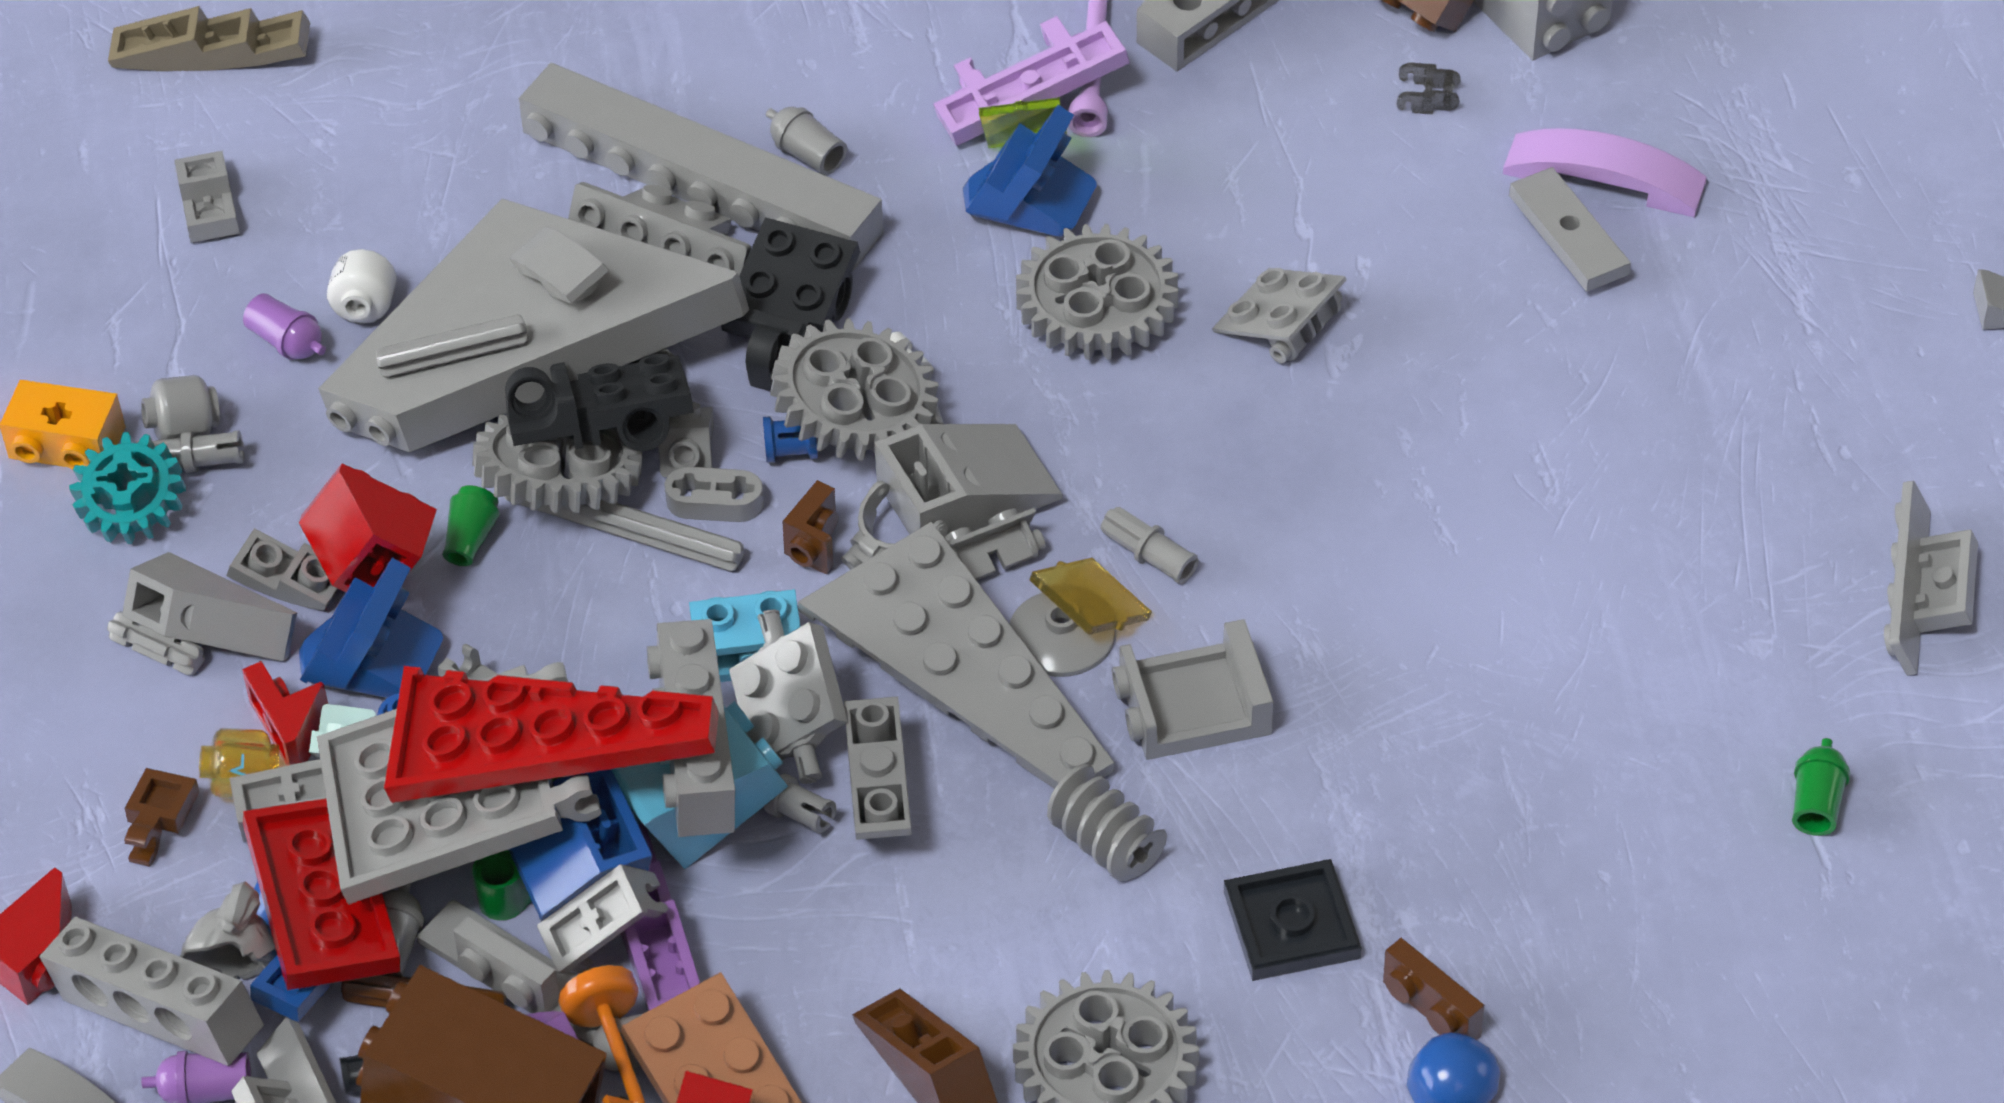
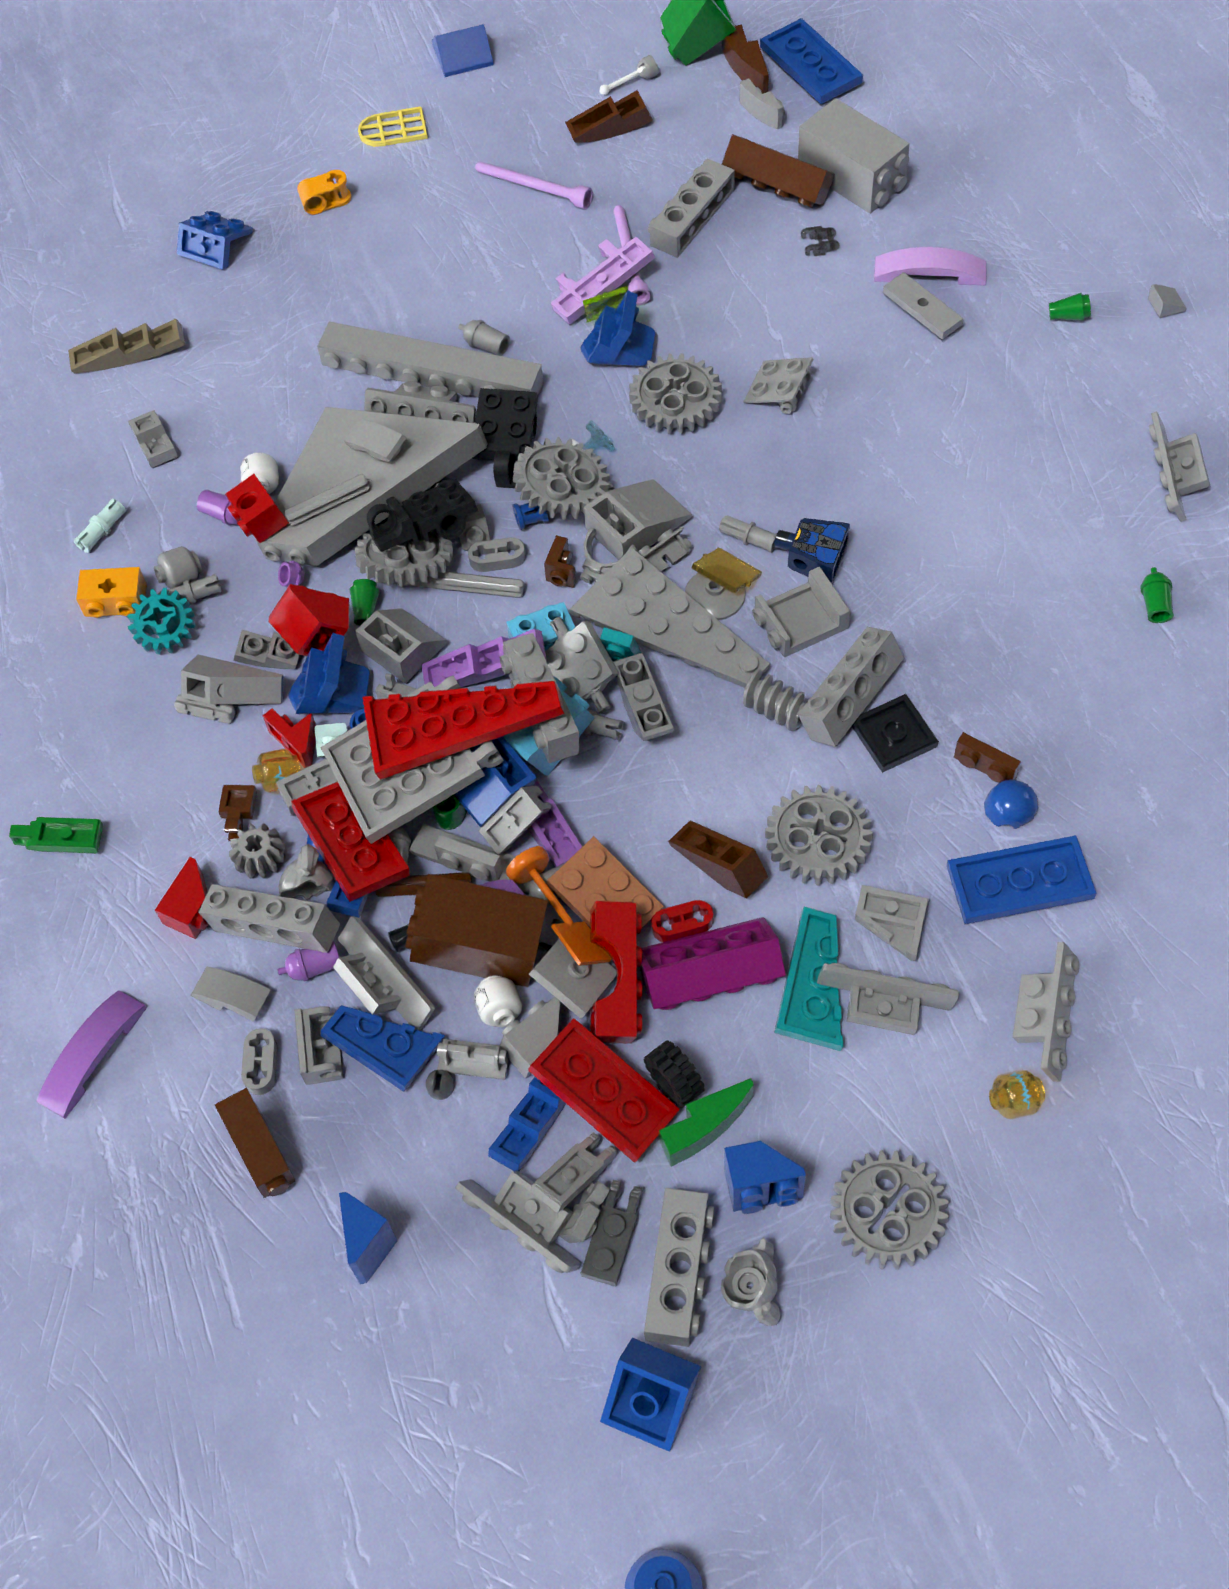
camera: 10 degrees left, 10 degrees up
(77, 317) = (99, 525): none -> light aqua pin
(168, 884) = (257, 850): none -> light grey gear
(332, 338) = (255, 509): none -> red brick
(364, 454) = (290, 573): none -> medium lavender plate
(504, 599) = (398, 642): none -> light grey slope
(619, 656) = (471, 662): none -> medium lavender slope
(864, 674) = (619, 644): none -> teal plate
(943, 338) = (598, 438): none -> clear light blue plant
(1236, 825) = (851, 686): none -> light grey brick
(1256, 584) = (815, 545): none -> torso
(1827, 282) = (1071, 308): none -> green cone

